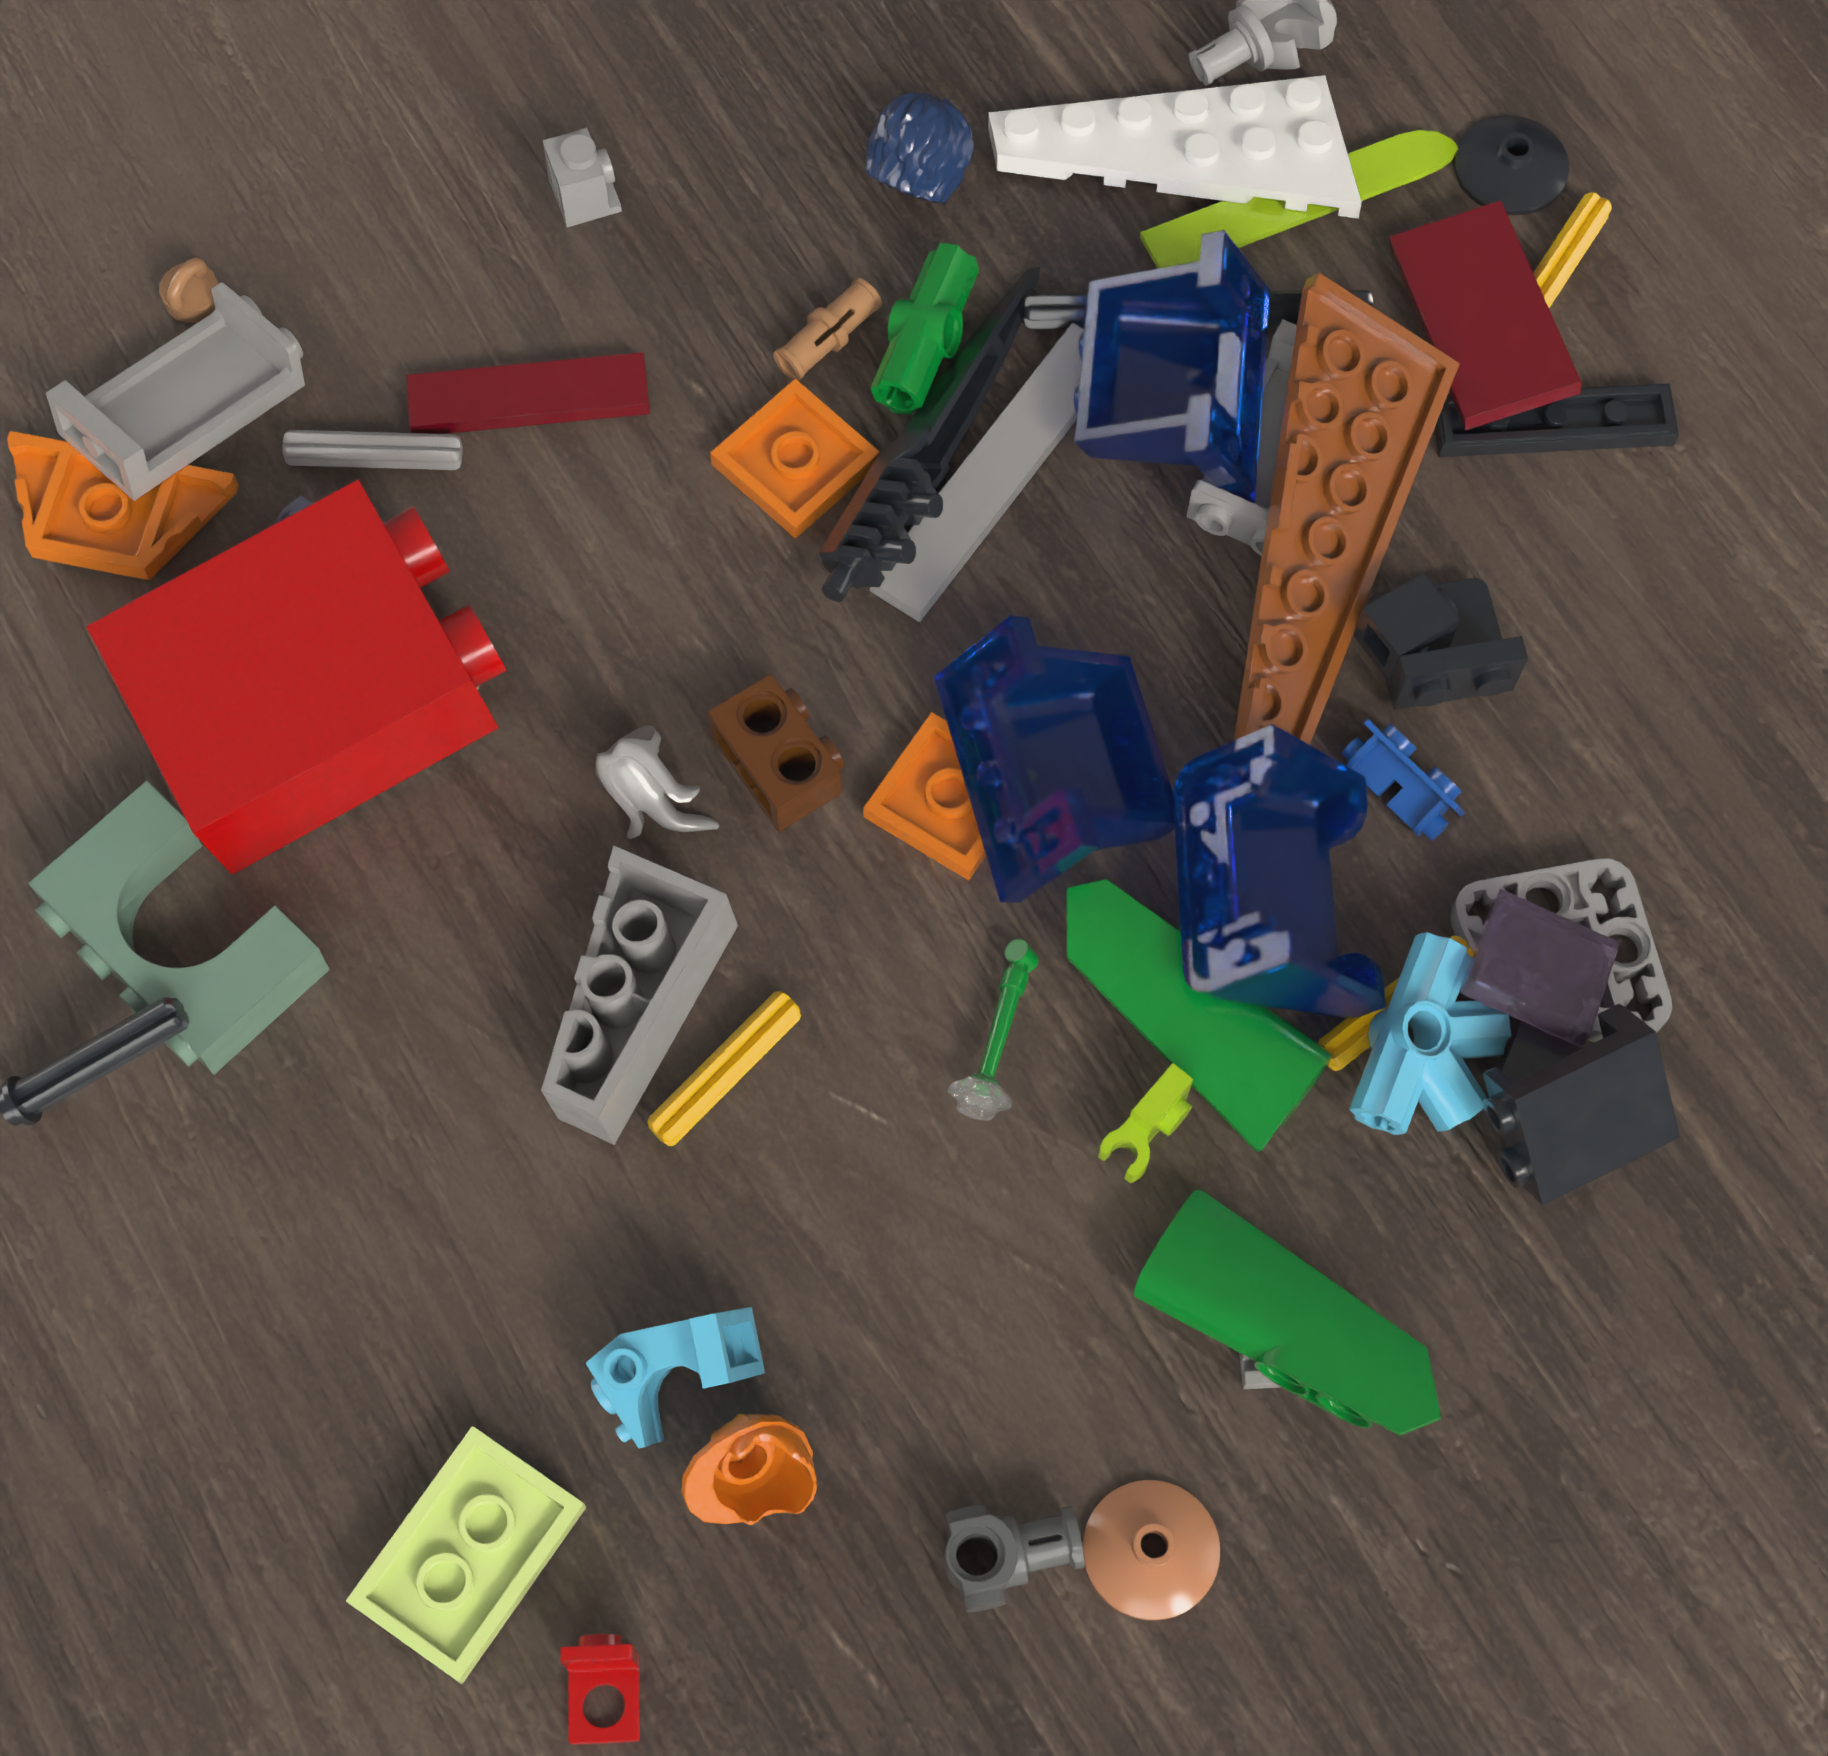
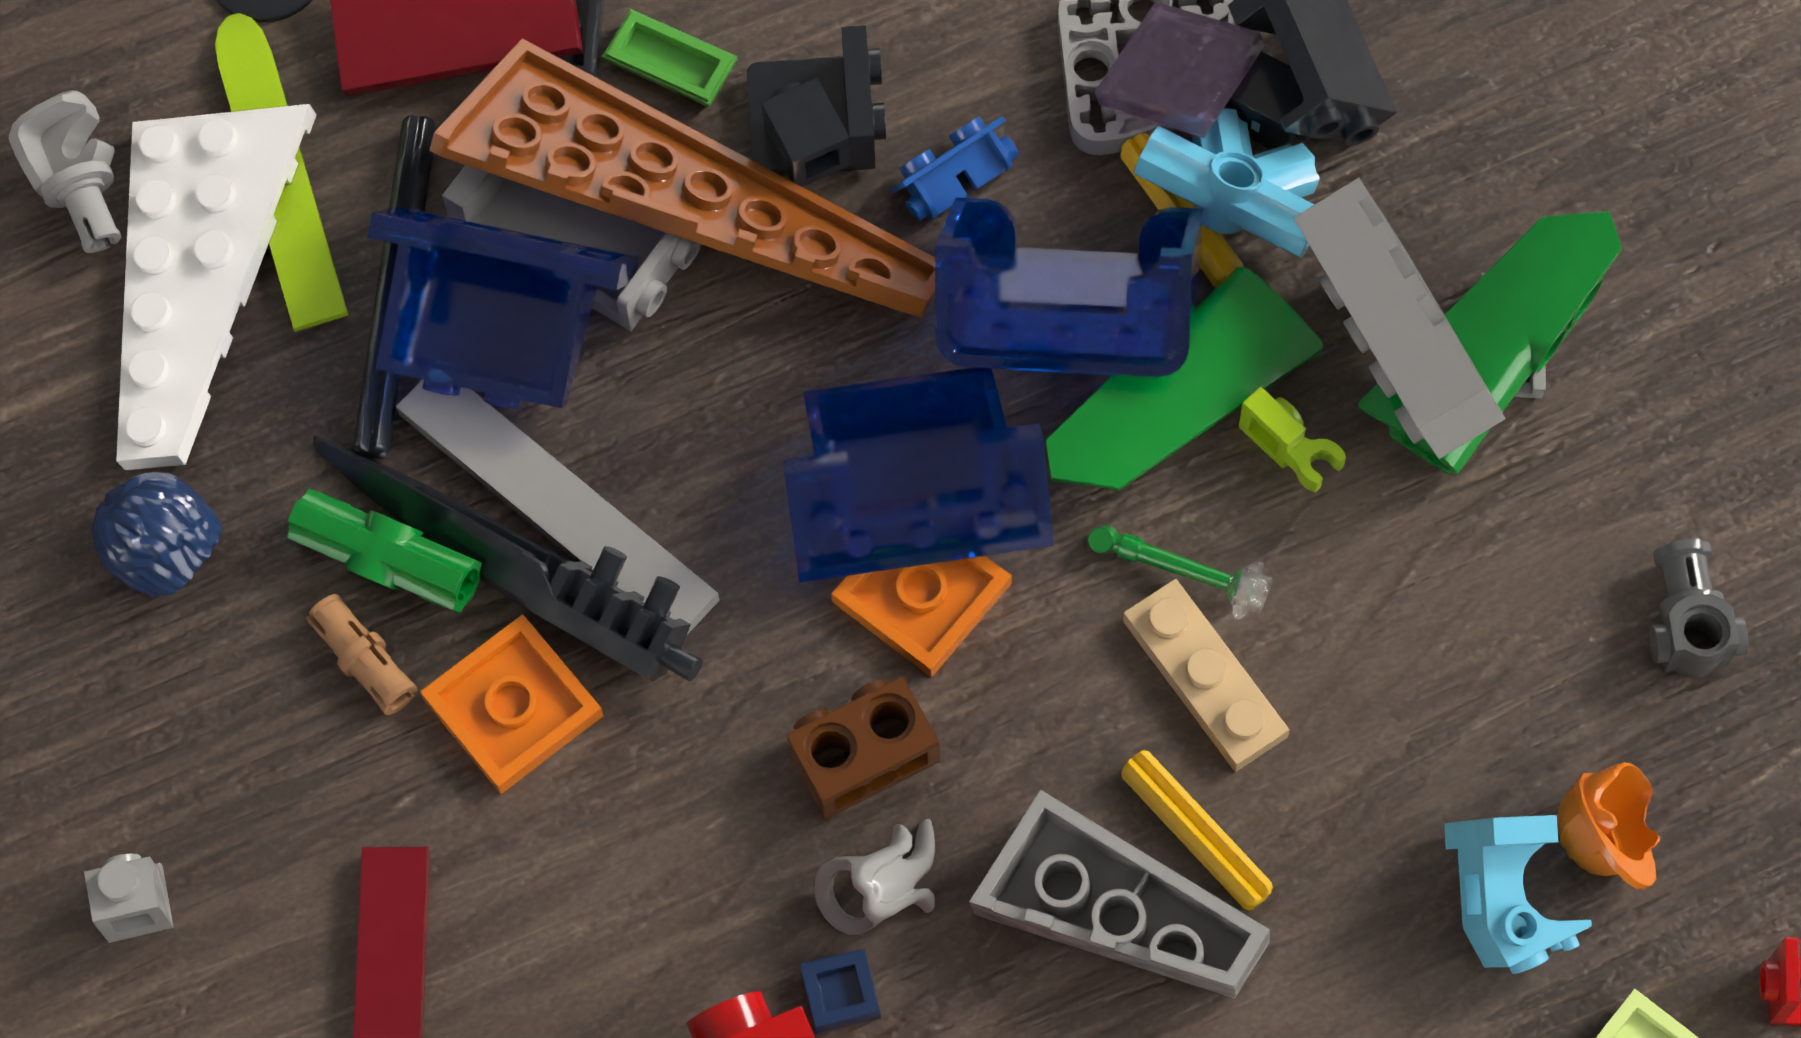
camera: 80 degrees left, 0 degrees up
(541, 763) = (840, 991): none -> dark blue tile
(888, 1066) = (1205, 675): none -> tan plate
(1146, 1585) = (1669, 514): nougat dish -> none
(1281, 1202) = (1397, 321): none -> light grey wedge
(1478, 511) = (670, 58): none -> bright green tile

